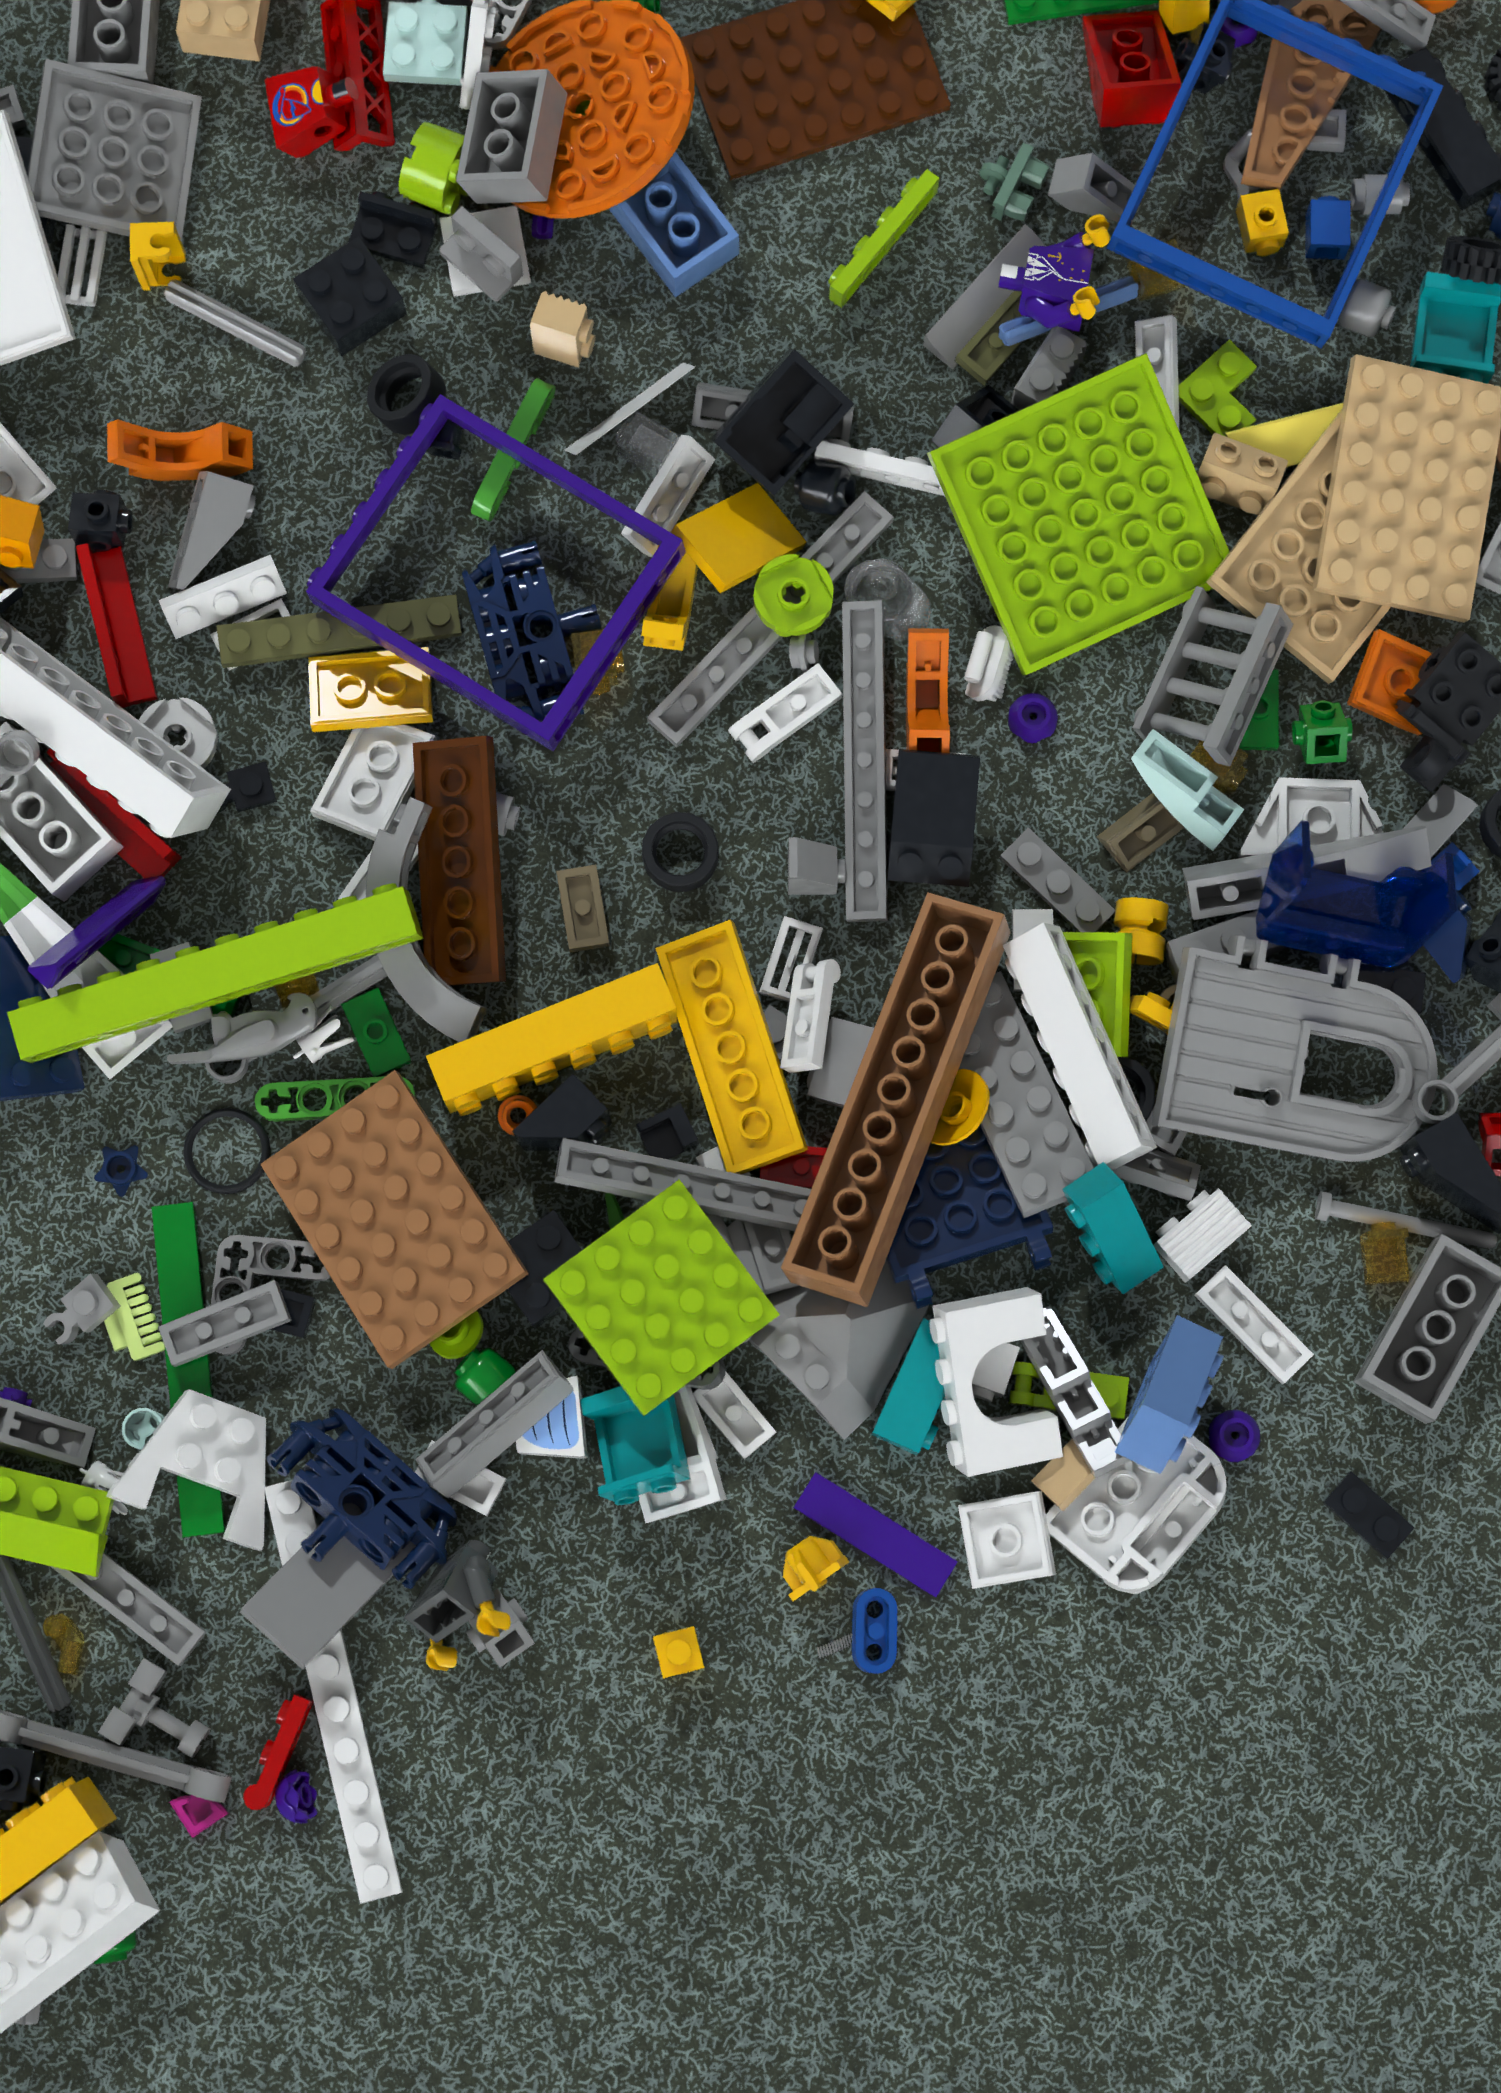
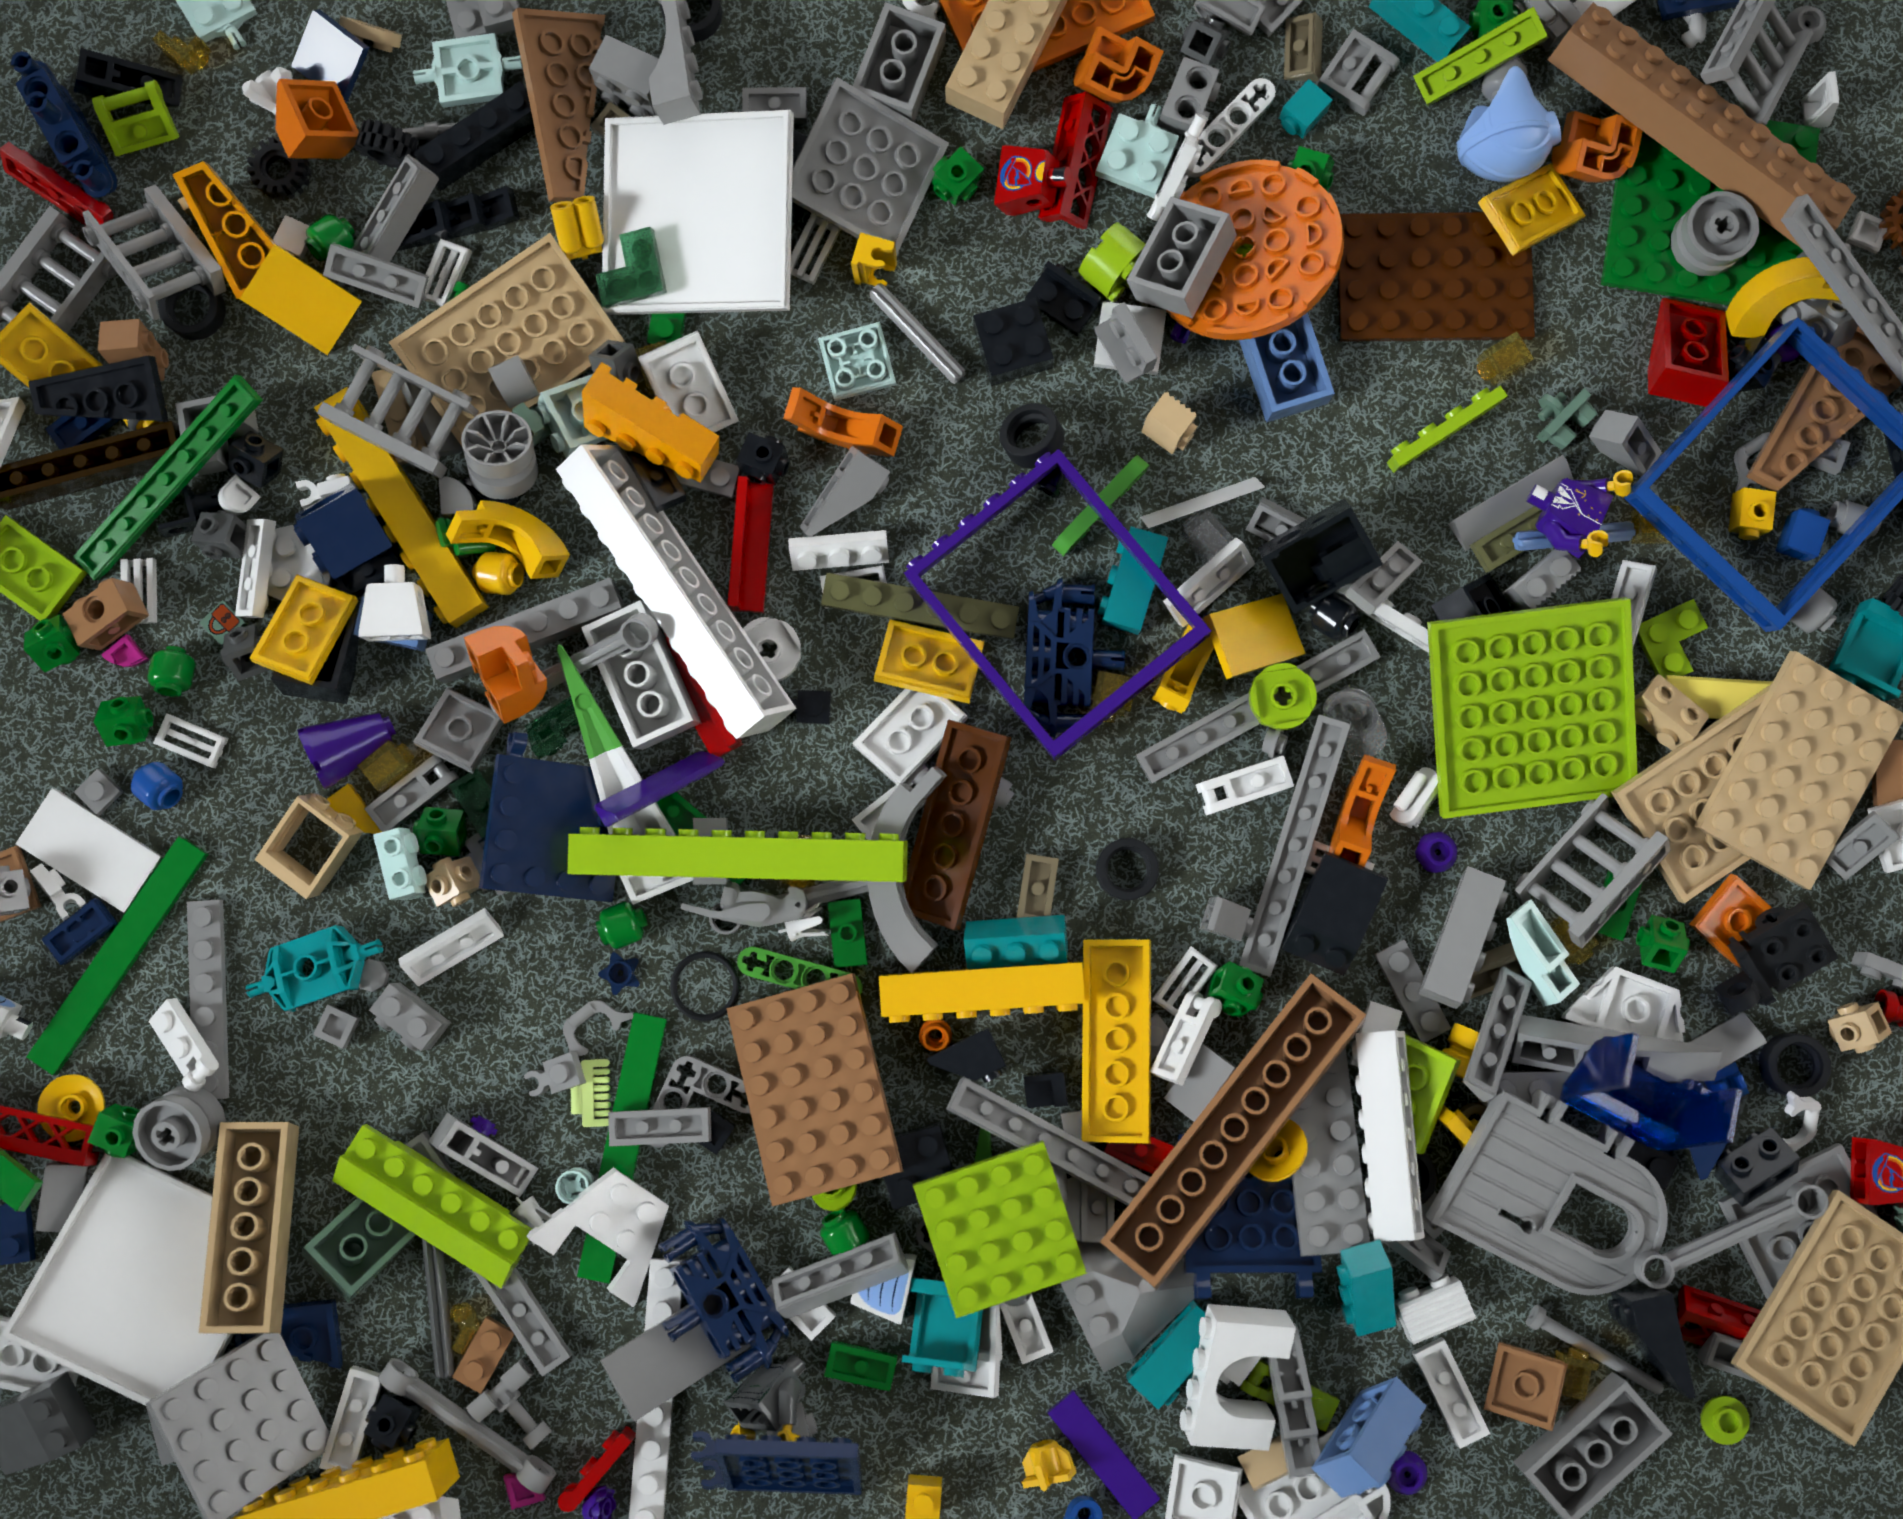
camera: 25 degrees right, 5 degrees up
(94, 1227) = (584, 1014): none -> light grey helmet
(100, 1667) = (484, 1354): none -> medium nougat plate
(104, 1108) = (621, 925): none -> green head
(174, 377) = (857, 361): none -> light aqua tile
(223, 131) = (956, 177): none -> green brick
(496, 1657) = (780, 1464): none -> dark blue plate
(555, 1526) = (861, 1365): none -> green plate
(575, 970) = (1016, 942): none -> teal brick
(578, 528) = (1131, 584): none -> teal brick
(852, 944) = (1236, 989): none -> green brick
(865, 425) = (1379, 584): none -> light grey plate
(923, 140) = (1504, 359): none -> clear yellow brick
(1091, 800) = (1462, 938): none -> light grey brick
(1163, 892) = (1497, 1034): none -> light grey slope
(1336, 1286) = (1525, 1386): none -> medium nougat plate

